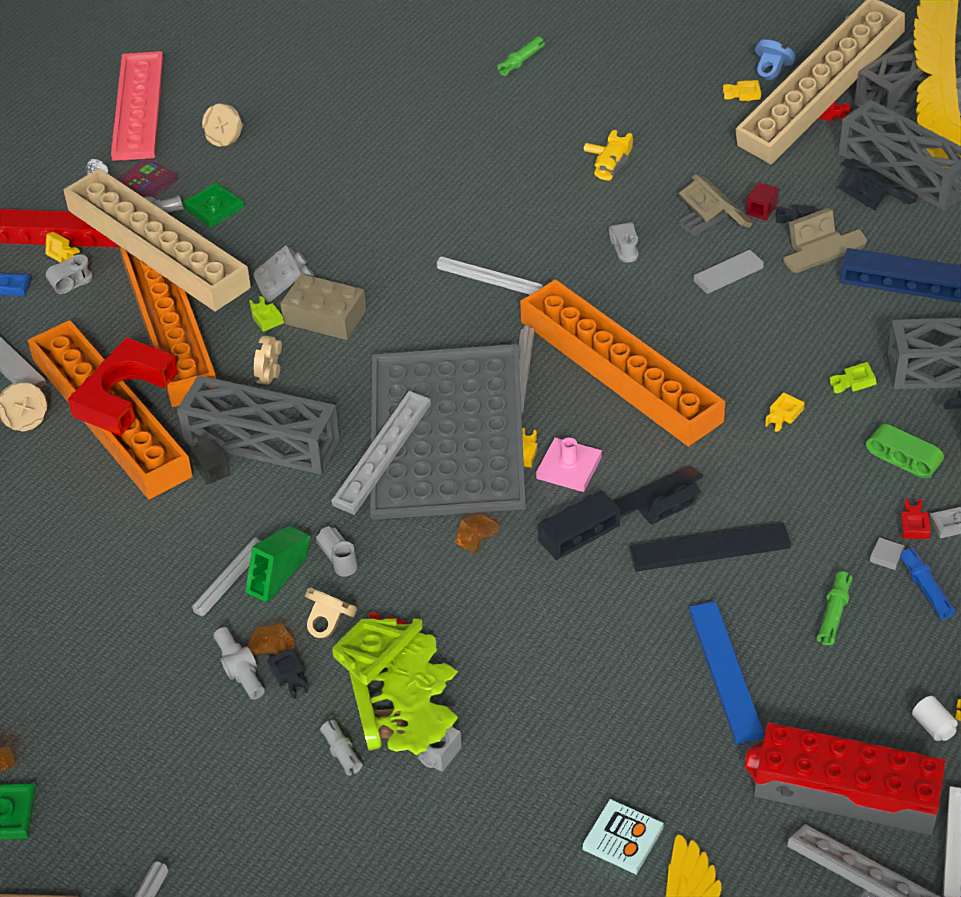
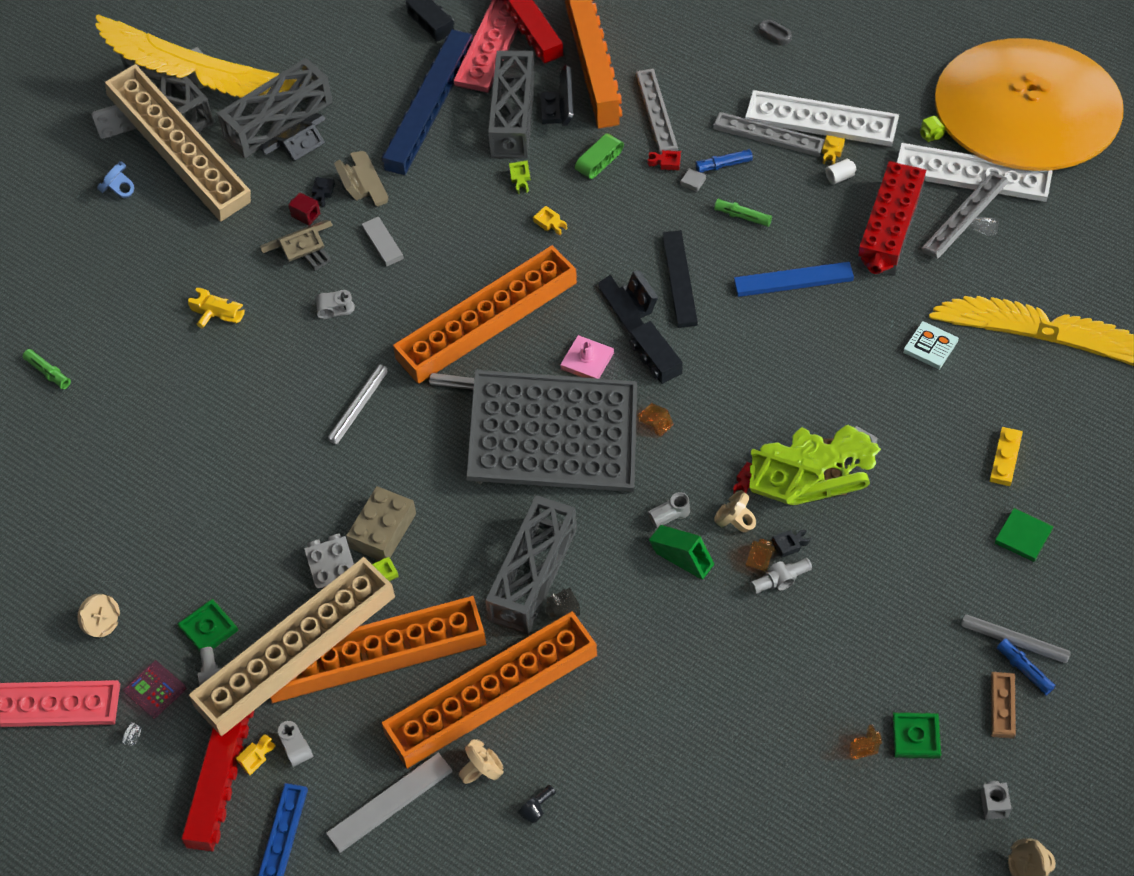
camera: 85 degrees left, 10 degrees up
(127, 361) = (505, 684): red arch -> none
(224, 580) = (688, 589): light grey axle -> none
(266, 360) = (452, 560): tan plate -> none
(341, 747) = (860, 506): light grey pin -> none
(381, 452) = (575, 473): light grey tile -> none
(744, 90) = (148, 207): yellow plate -> none

